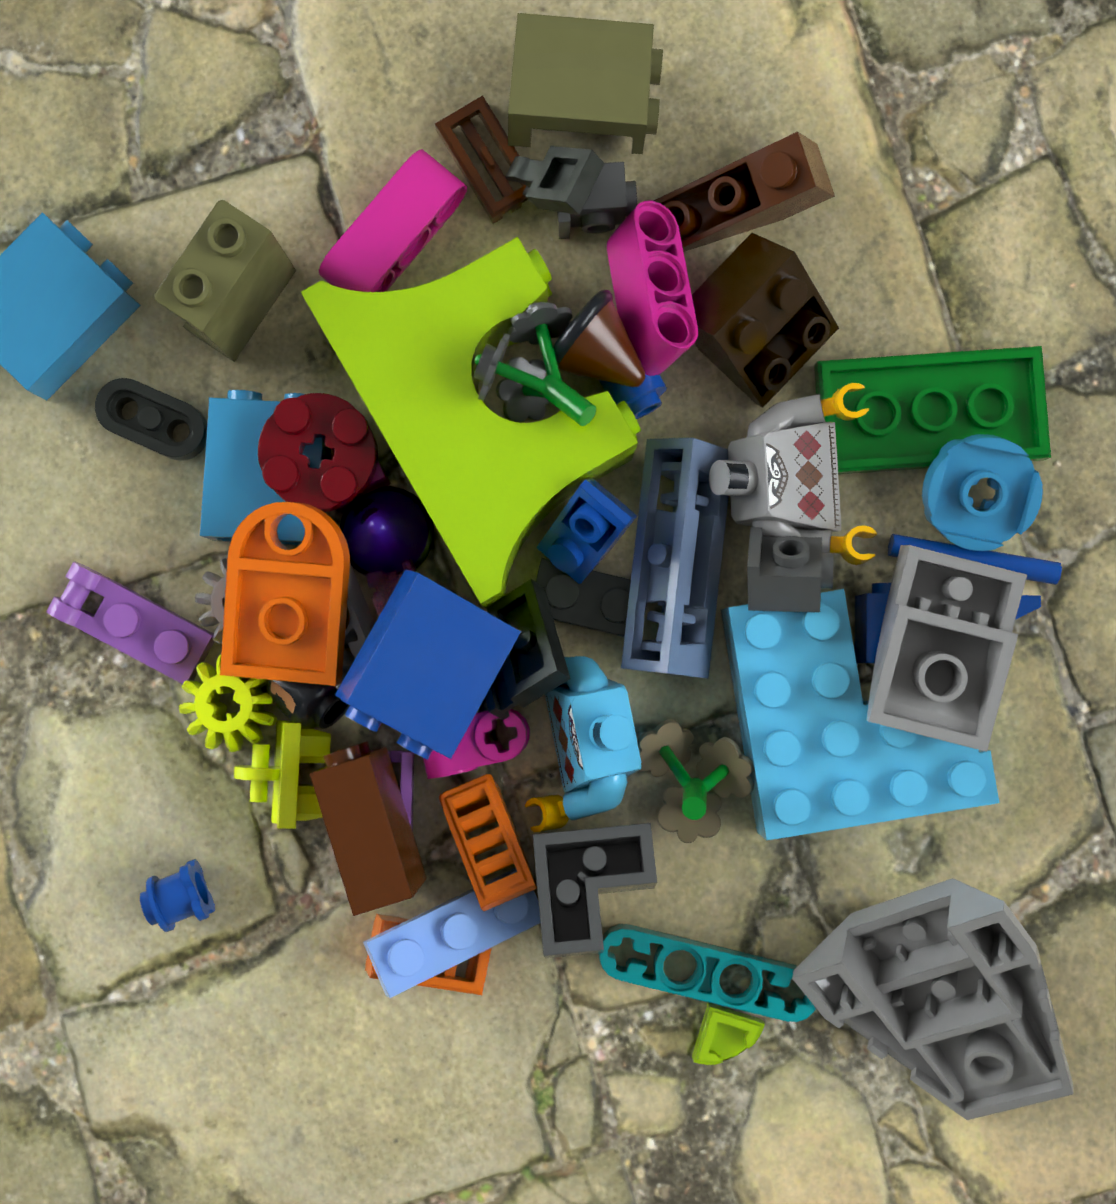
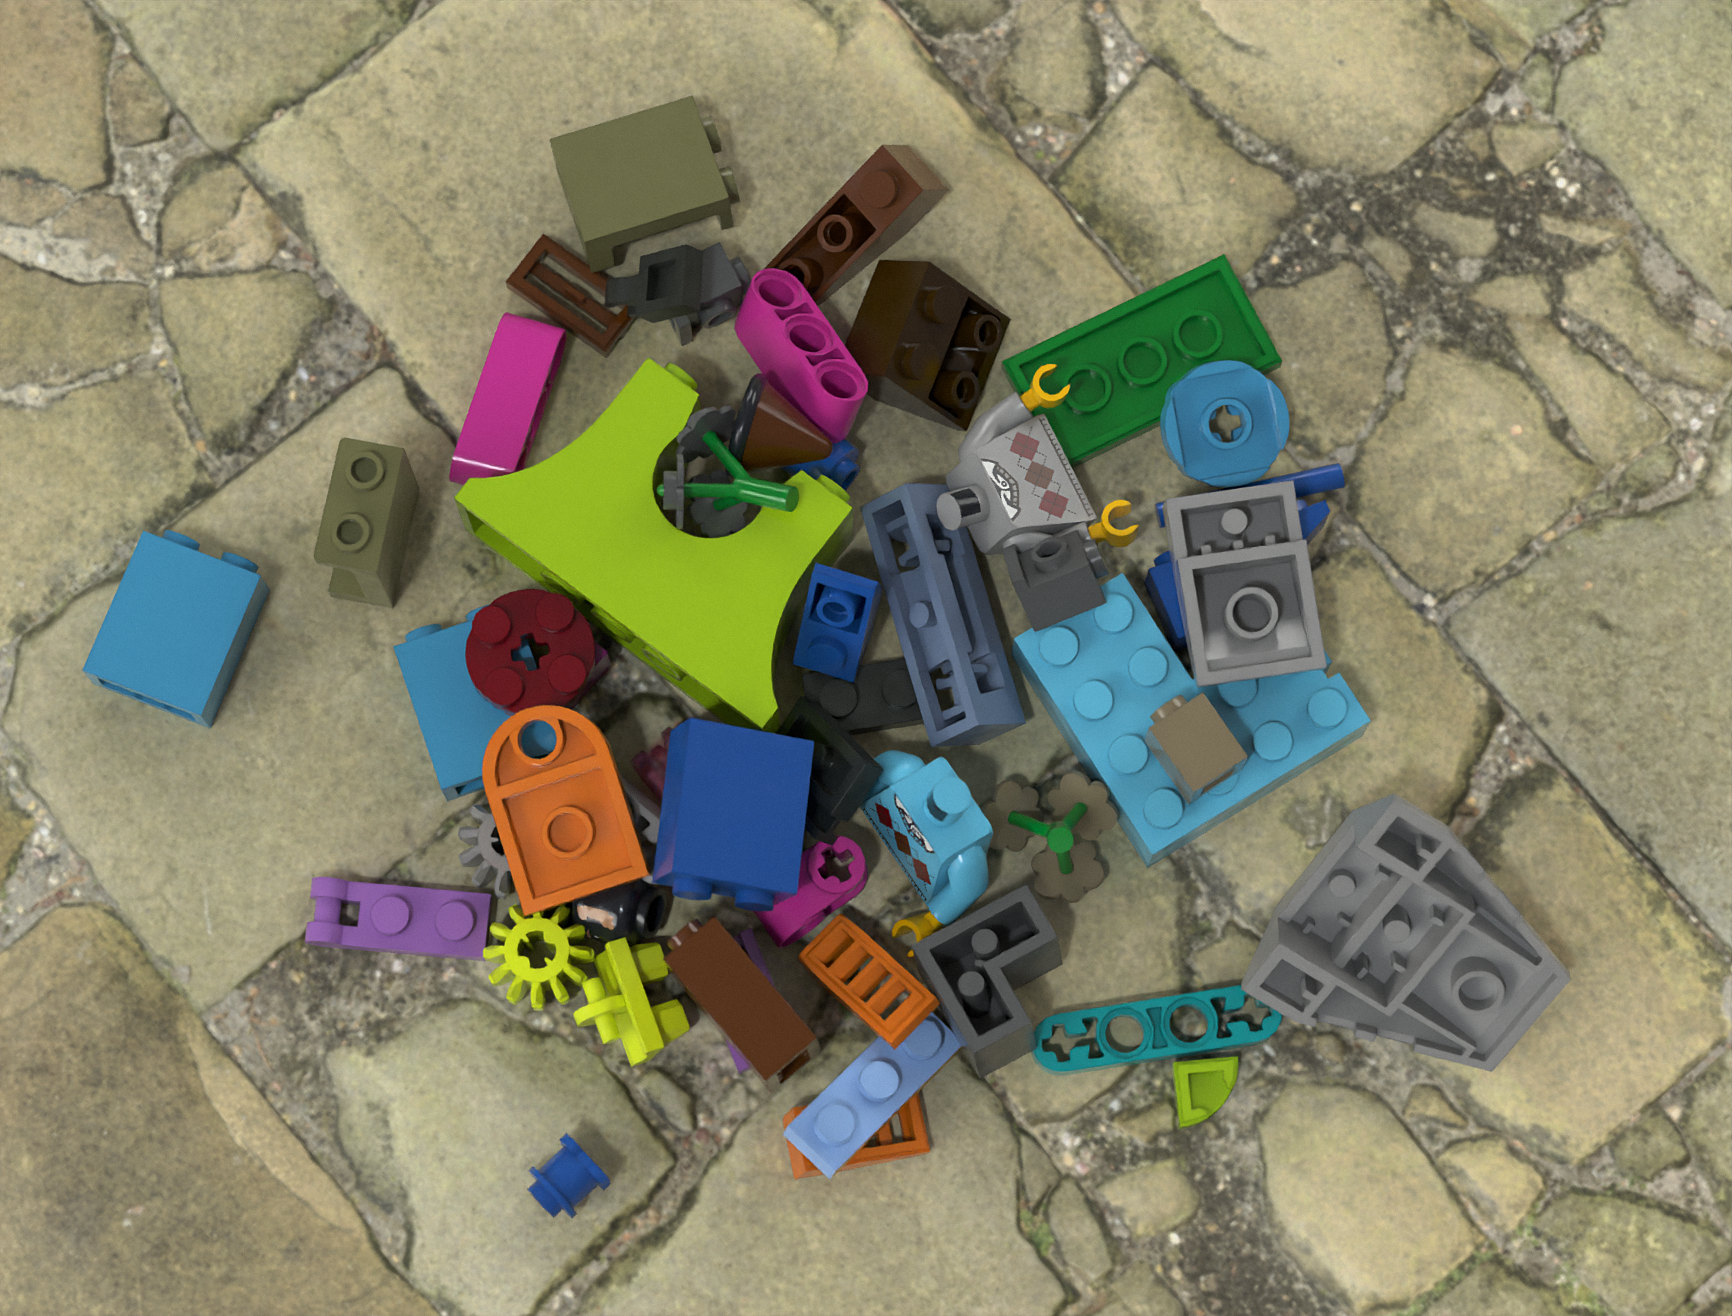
camera: 20 degrees left, 10 degrees down
(154, 420) = (337, 699): pearl dark grey plate -> none
(386, 530) = (631, 710): dark purple hat -> none
(843, 772) = (1194, 746): none -> dark tan brick

